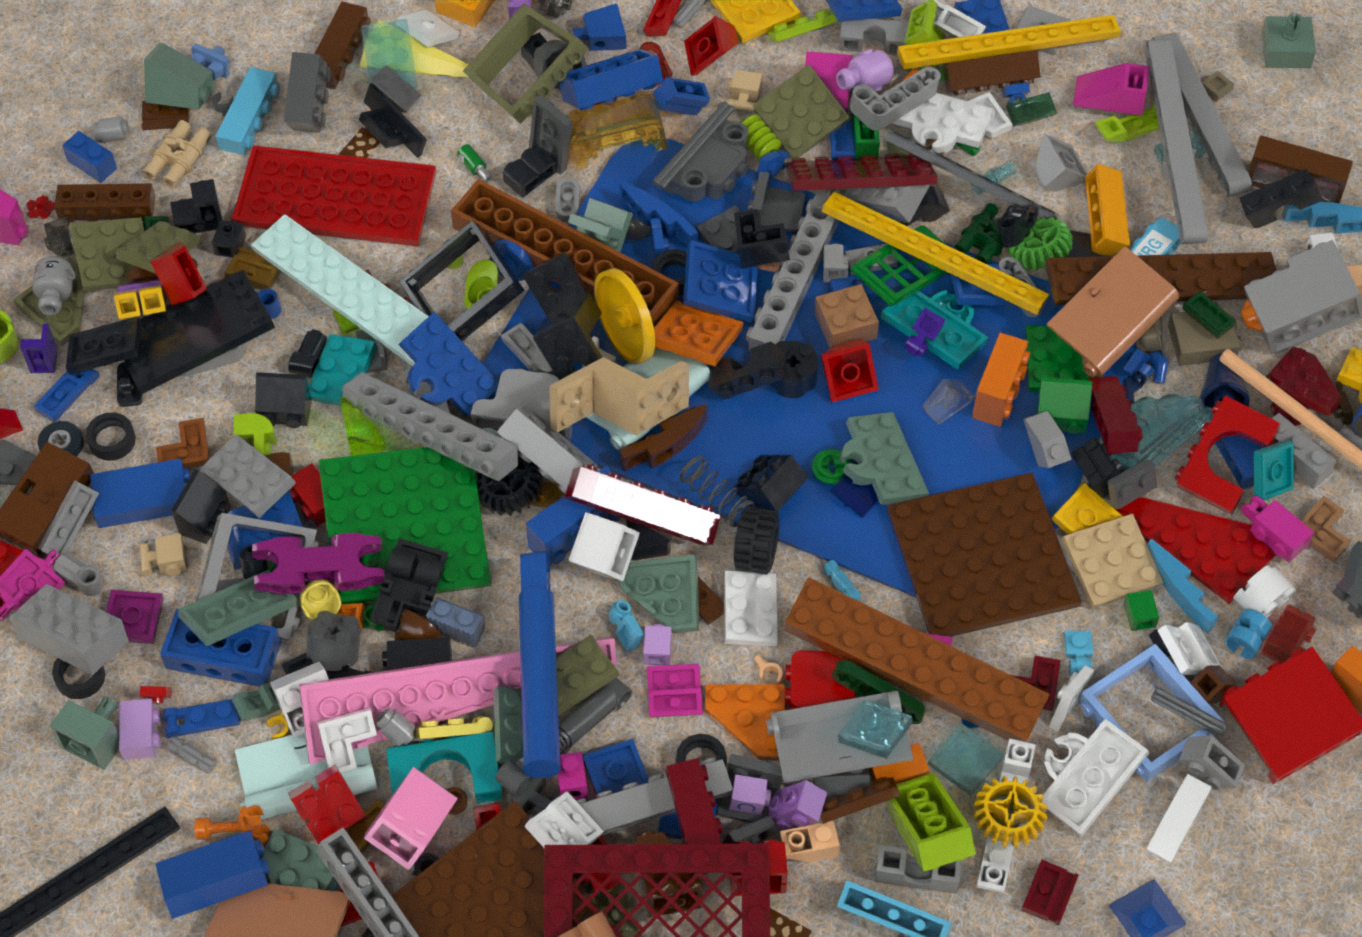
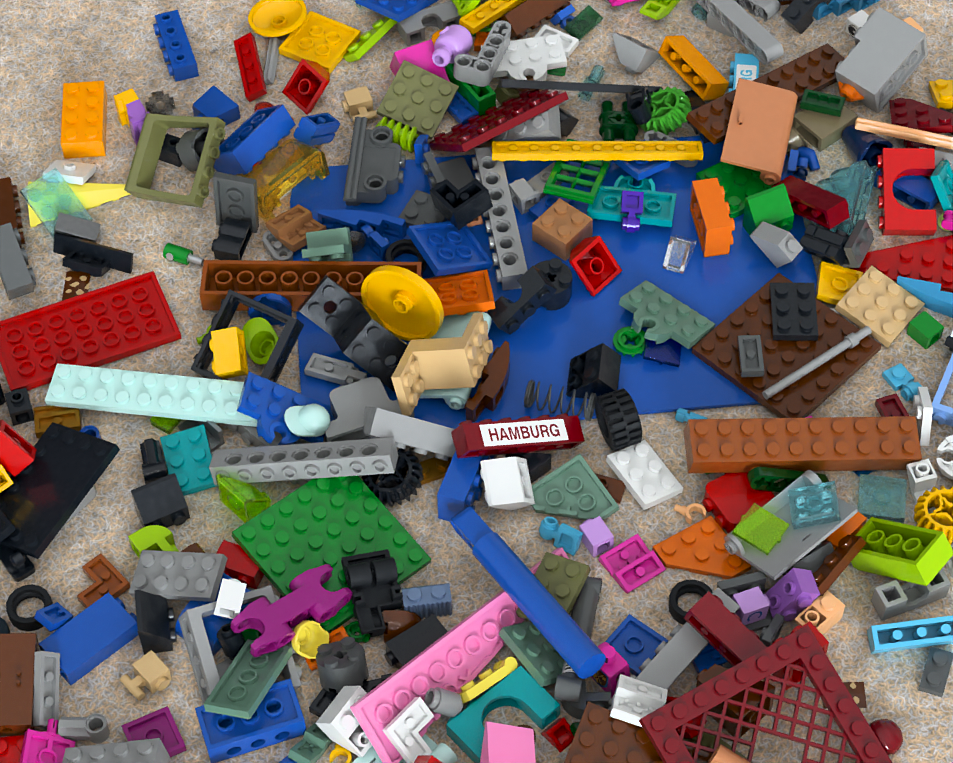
camera: 30 degrees left, 5 degrees down
(120, 455) = (53, 616): none -> blue bracket
(265, 522) = (230, 598): none -> white brick
(436, 283) = (229, 353): none -> yellow brick
(461, 387) = (307, 420): none -> light aqua cap
(594, 183) = (292, 226): none -> medium nougat slope
(808, 724) = (761, 529): none -> clear neon green piece
(933, 544) = (750, 356): none -> dark grey plate
(1013, 521) = (793, 311): none -> black plate
(1048, 581) = (849, 341): none -> light grey bar

